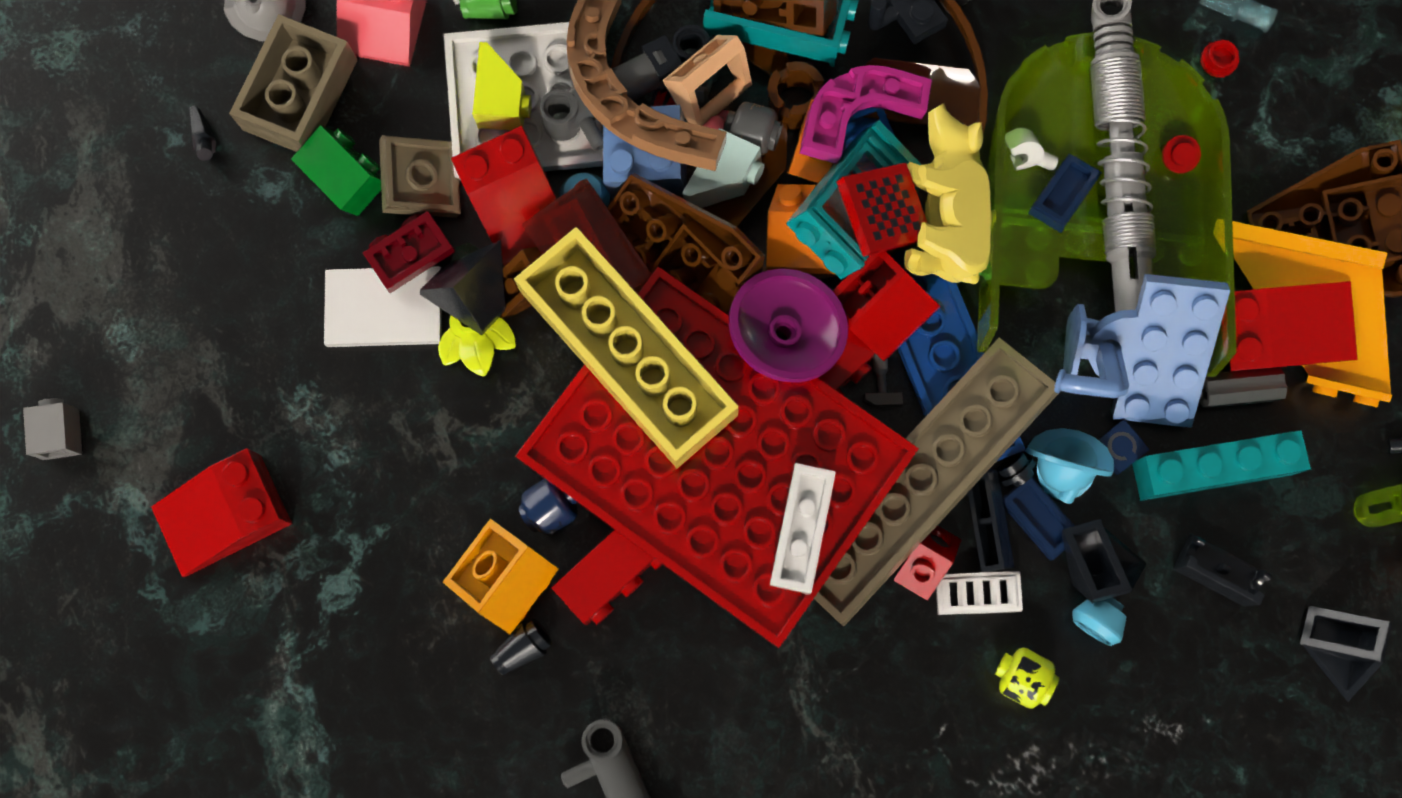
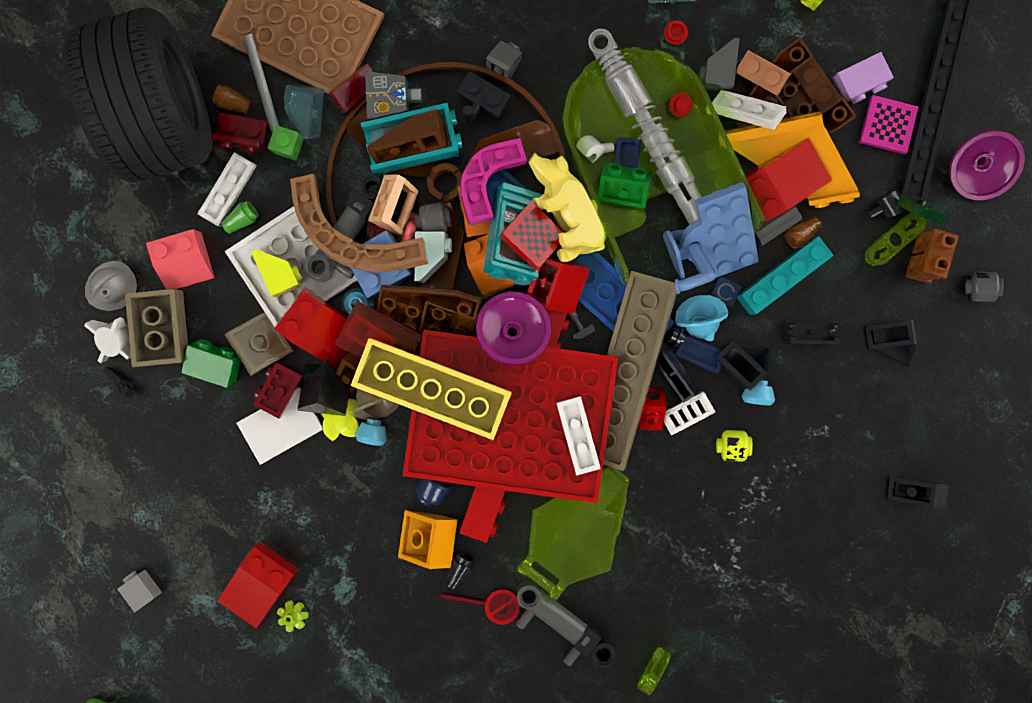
camera: 30 degrees left, 10 degrees up
(223, 67) = (111, 338): none -> white piece
(243, 586) = (292, 615): none -> lime plant
(505, 380) = (371, 432): none -> medium azure cone
(532, 342) = (372, 406): none -> dark tan helmet
(551, 736) = (500, 605): none -> piece
(721, 685) = (576, 537): none -> clear neon green windscreen
(1047, 218) = (624, 185): none -> green bracket
(1262, 133) = (720, 68): none -> dark grey slope
(1276, 418) = (802, 232): none -> clear orange cone
(1280, 204) = (748, 109): none -> white tile
(1322, 165) = (763, 73): none -> nougat plate

